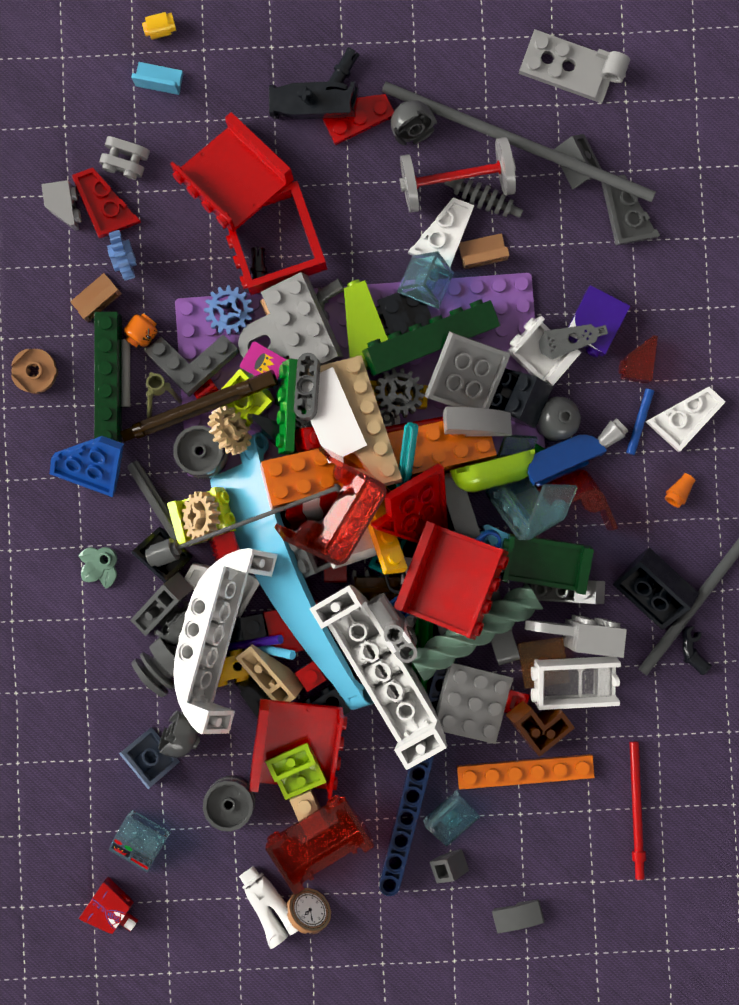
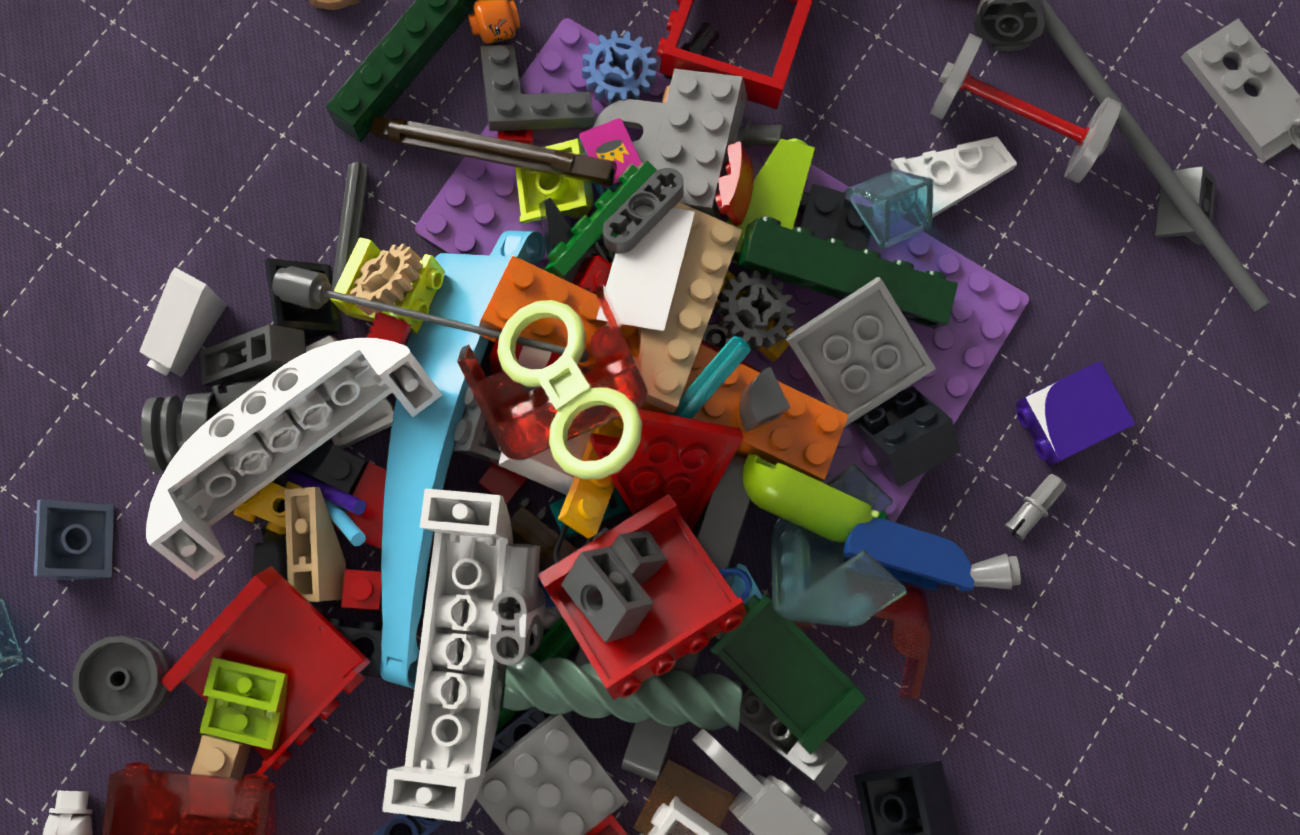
camera: 30 degrees right, 10 degrees down
(90, 464) = (306, 124): blue plate -> none
(96, 567) = (214, 257): sand green plate -> none
(113, 616) = (181, 323): none -> white slope
(125, 373) = (436, 58): light grey bar -> none
(156, 387) = (459, 88): olive plant -> none
(179, 737) = (127, 546): dark grey cylinder -> none
(187, 454) = (450, 205): dark grey wheel -> none
(229, 430) = (504, 198): tan gear -> none
(342, 335) = (737, 185): none -> slope
(345, 511) = (569, 390): none -> yellowish green bar
(433, 566) = (639, 554): none -> dark grey brick
(434, 592) = (607, 594): none -> dark grey brick
(438, 441) = (762, 401): none -> dark grey brick
(476, 421) = (831, 414): light grey slope -> none
(483, 196) = (1036, 163): dark grey piece -> none
(483, 251) = (987, 229): medium nougat panel -> none
(527, 353) = (977, 398): white panel -> none
(559, 419) = (937, 501): dark grey cylinder -> none
(562, 342) = (1012, 406): dark grey piece -> none
(609, 383) = (1036, 506): none -> light grey axle
(627, 217) = (1204, 314): dark grey wing -> none
(639, 364) = (1096, 507): clear red slope -> none
(640, 420) = (1042, 586): blue bar -> none
(679, 492) = (1033, 717): orange cone -> none
(686, 418) = (1109, 626): white wing -> none

